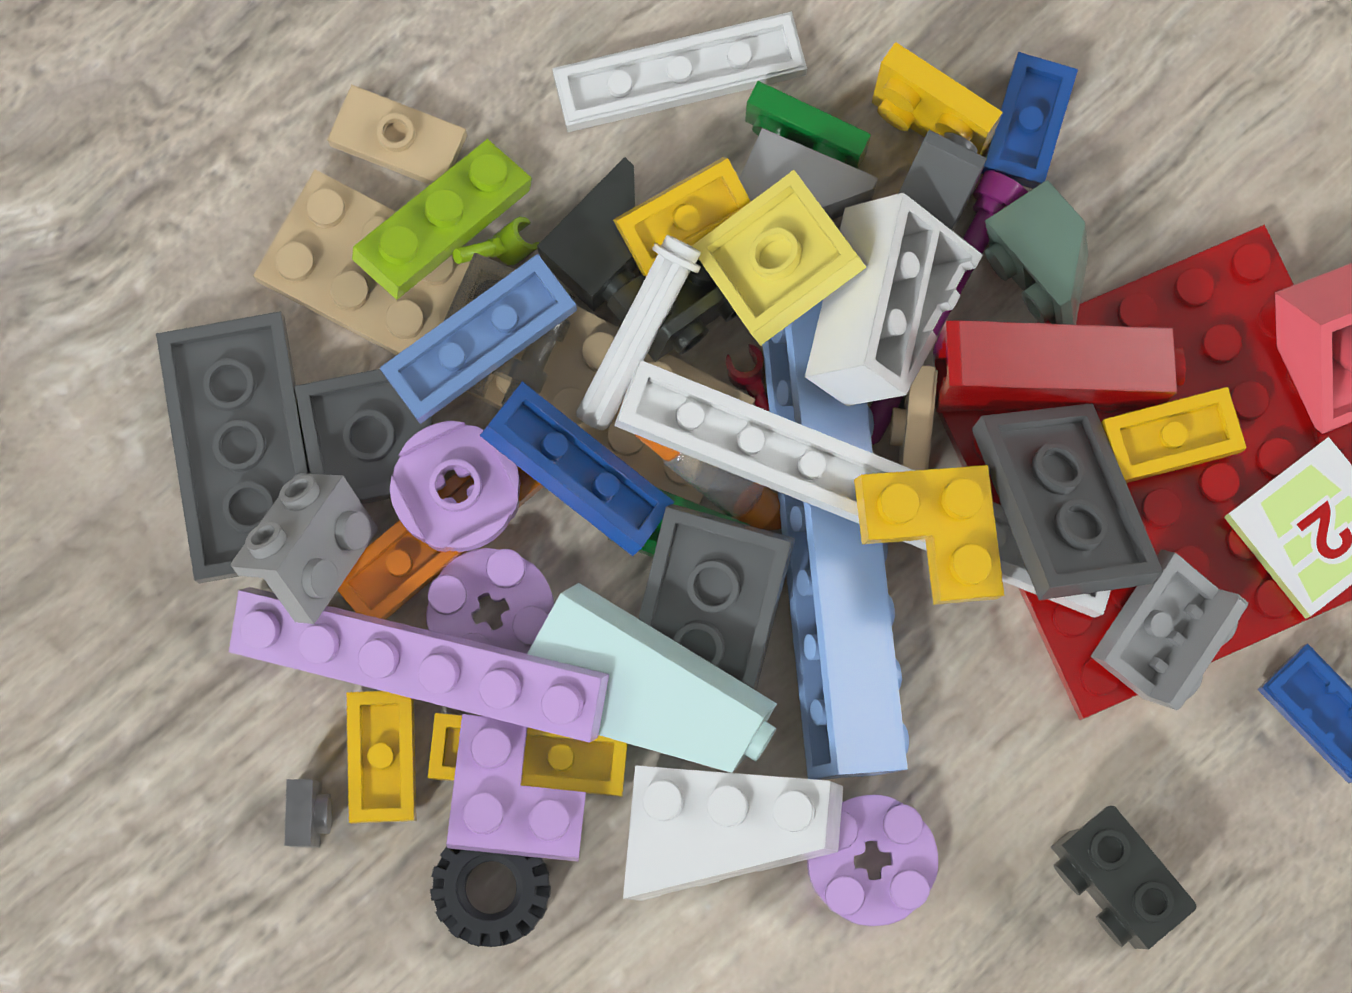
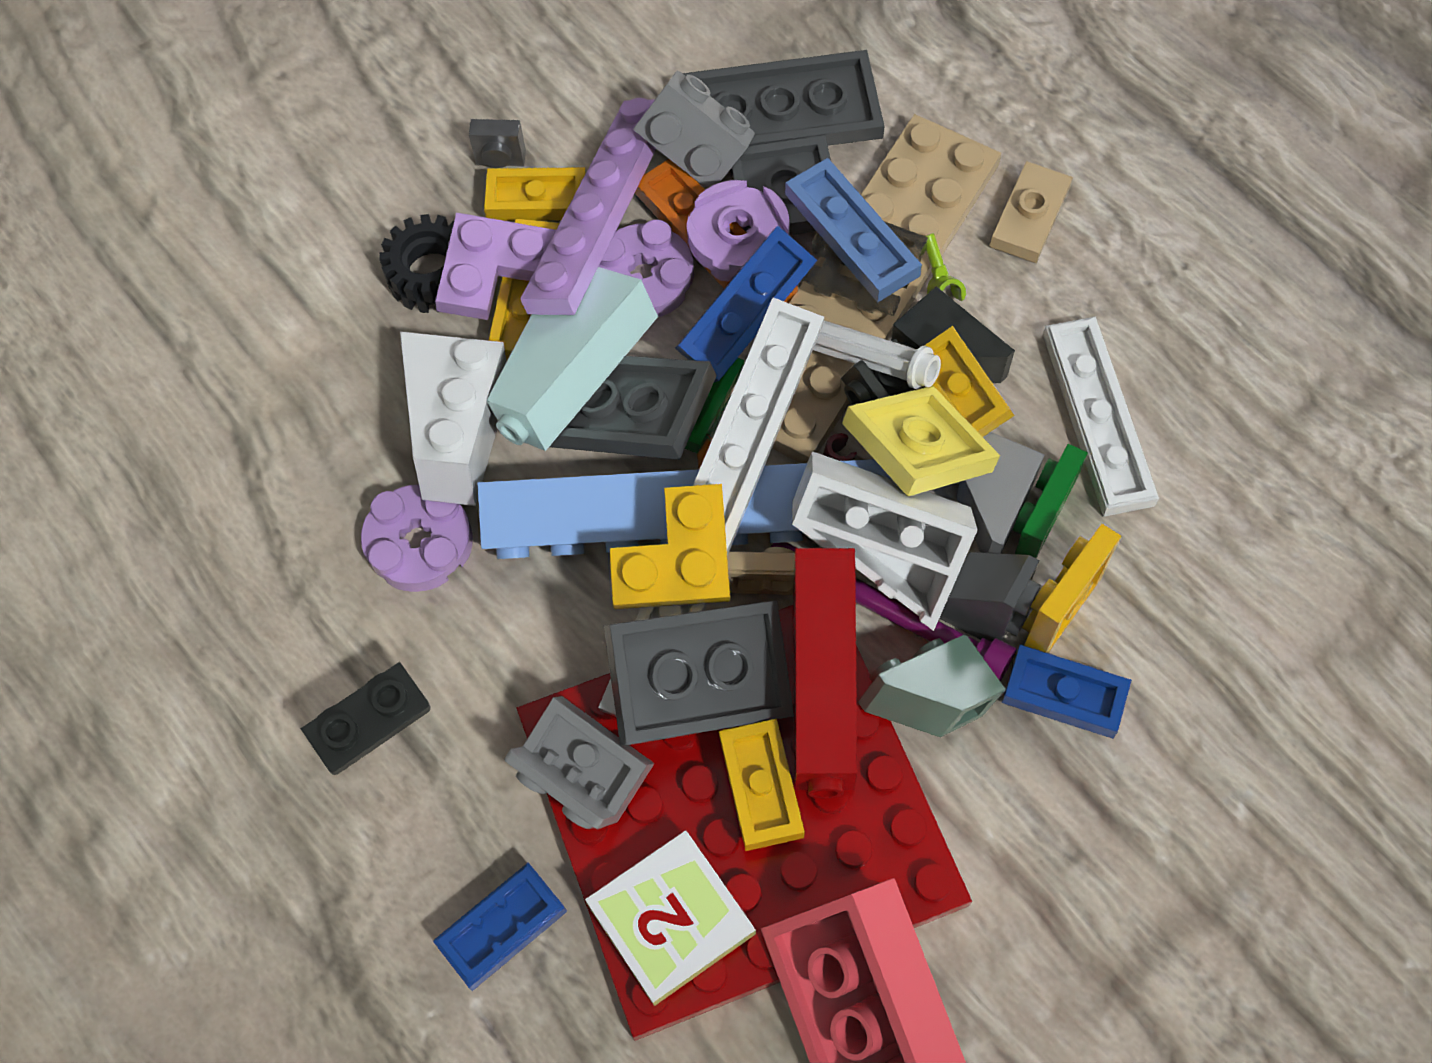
camera: 95 degrees right, 15 degrees down
(441, 219) = (960, 229): lime plate -> none

